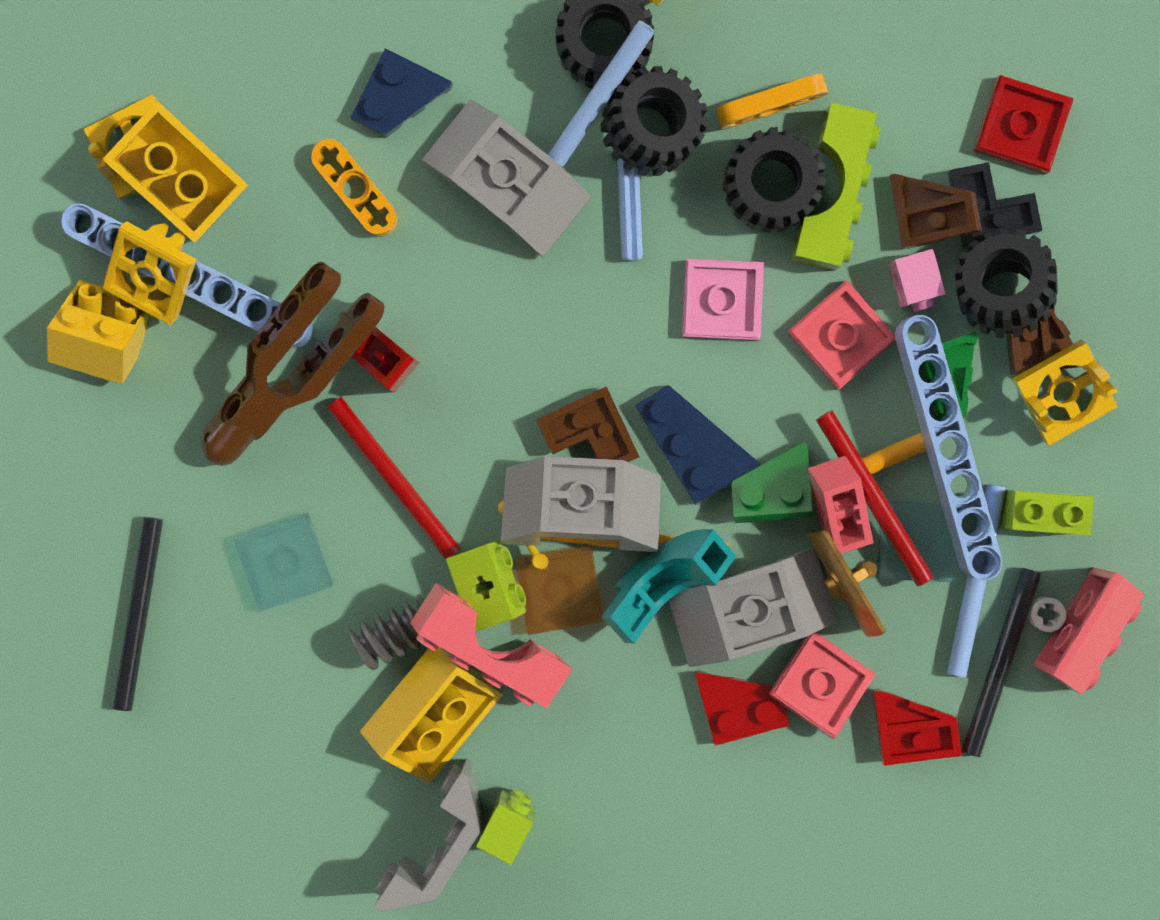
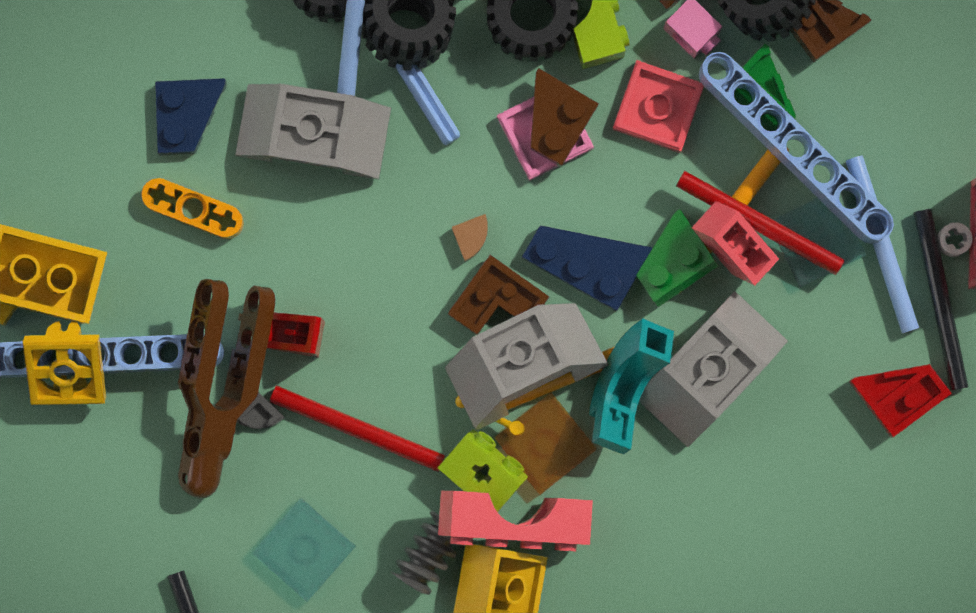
camera: 30 degrees left, 5 degrees down
(96, 333) = (46, 444): yellow slope -> none
(312, 415) = (260, 414): none -> dark grey tile
(599, 358) = (471, 236): none -> medium nougat tile
(738, 707) = (748, 457): red wing -> none
(742, 293) = (558, 117): none -> reddish brown wing
(822, 684) = (804, 399): coral tile -> none
(844, 582) = (773, 304): pearl gold shield -> none
(1047, 512) = (906, 156): lime brick -> none
(1102, 399) = (831, 57): yellow piece -> none

